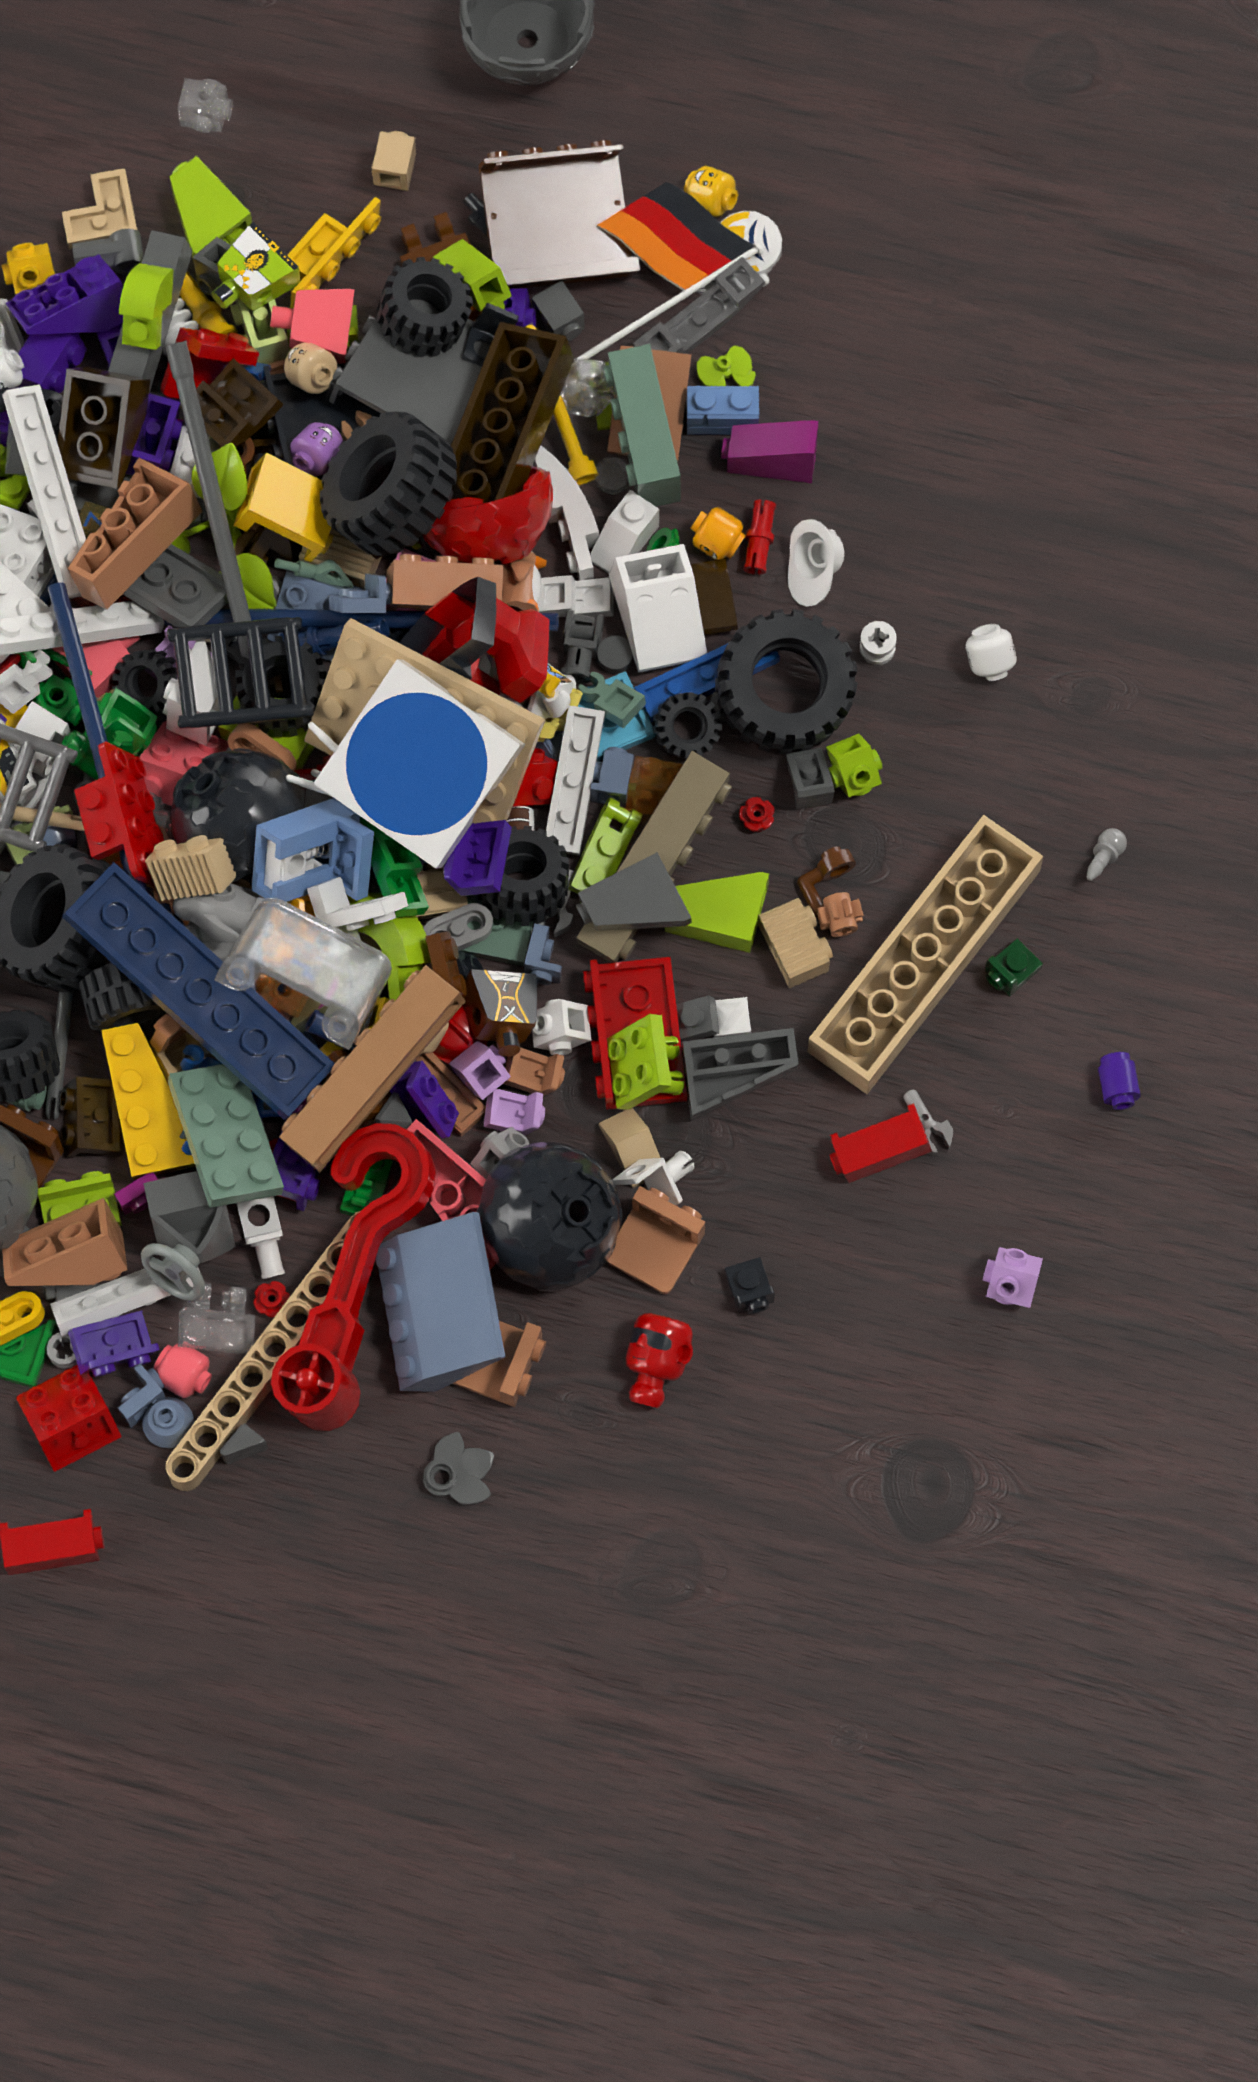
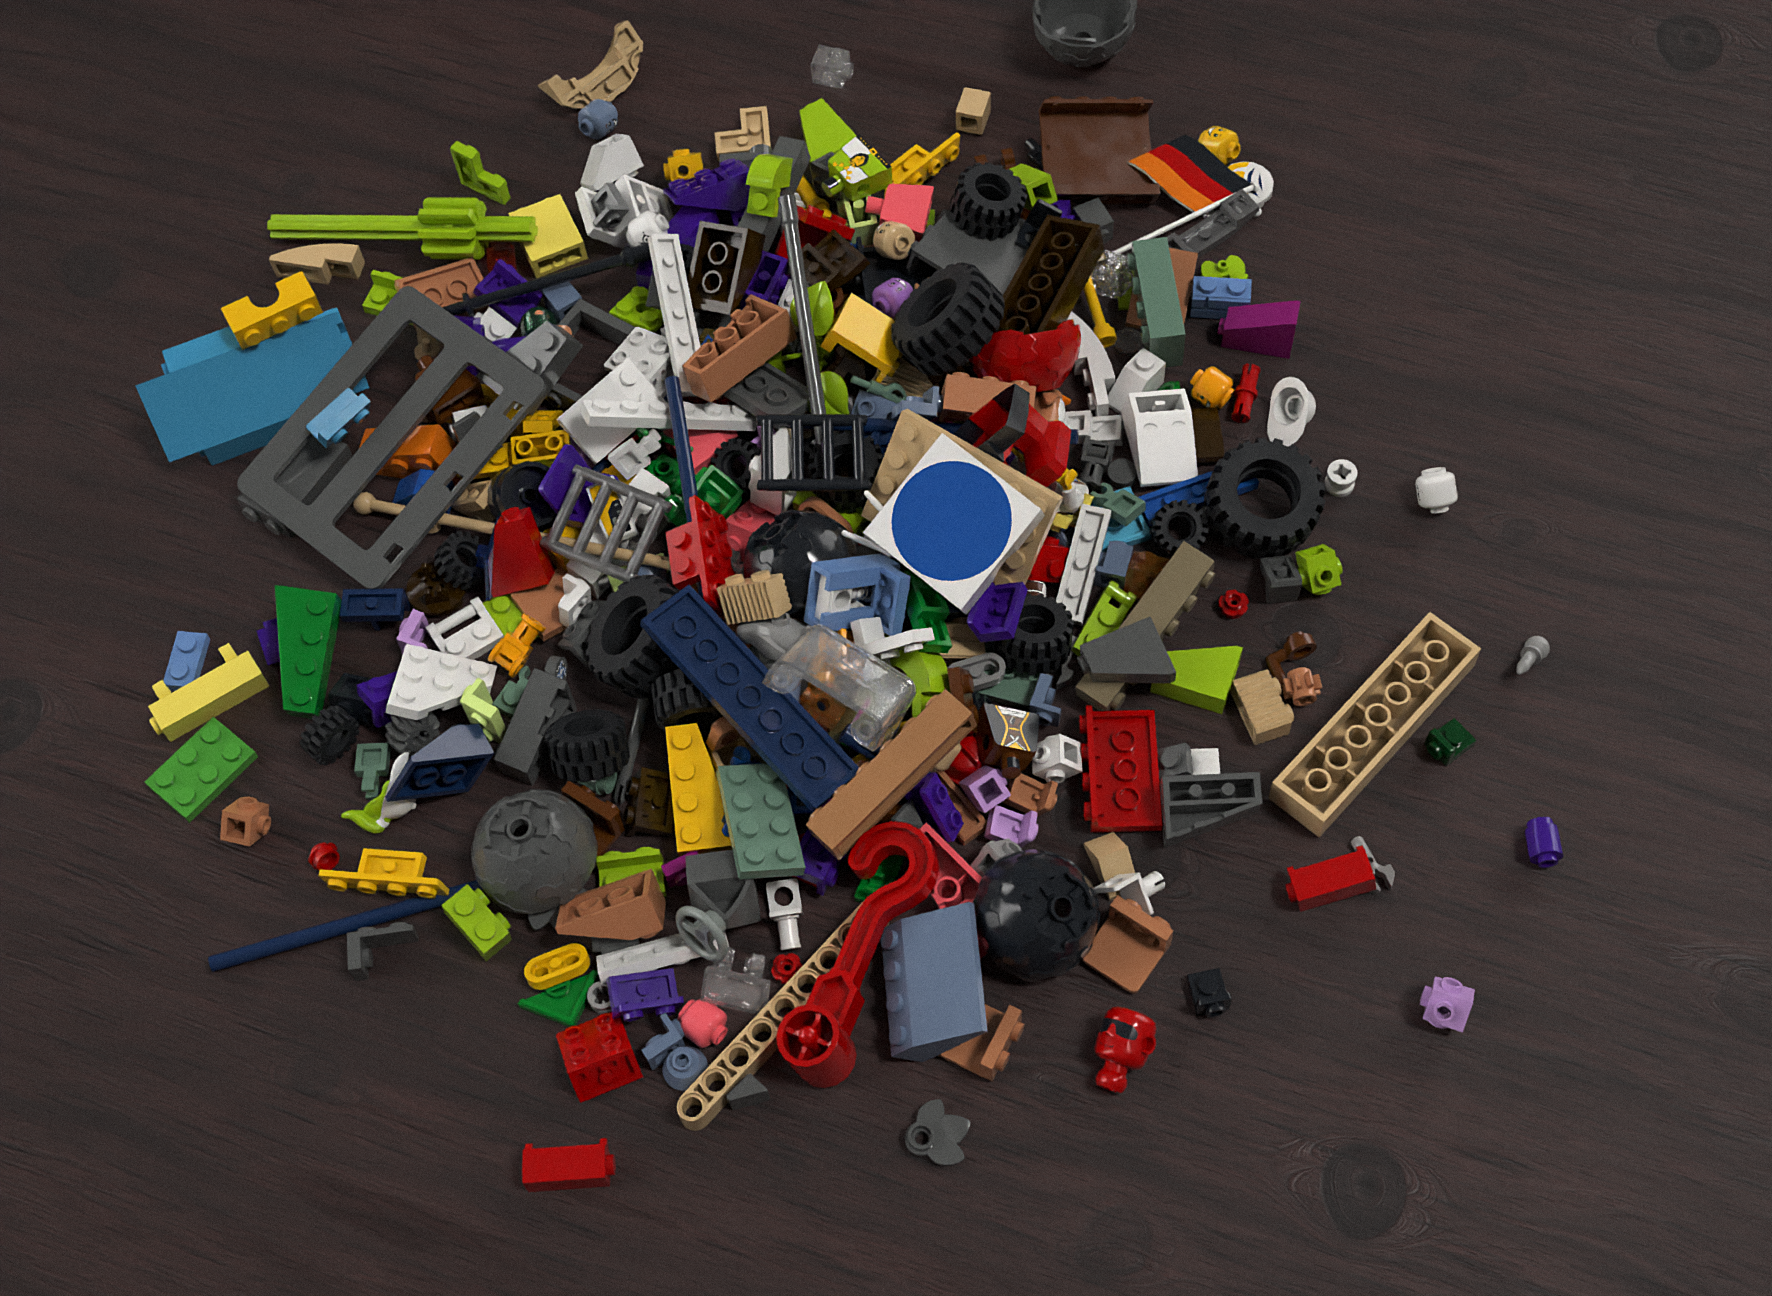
camera: 10 degrees right, 10 degrees down
(641, 1062) = (1125, 791): lime plate -> none

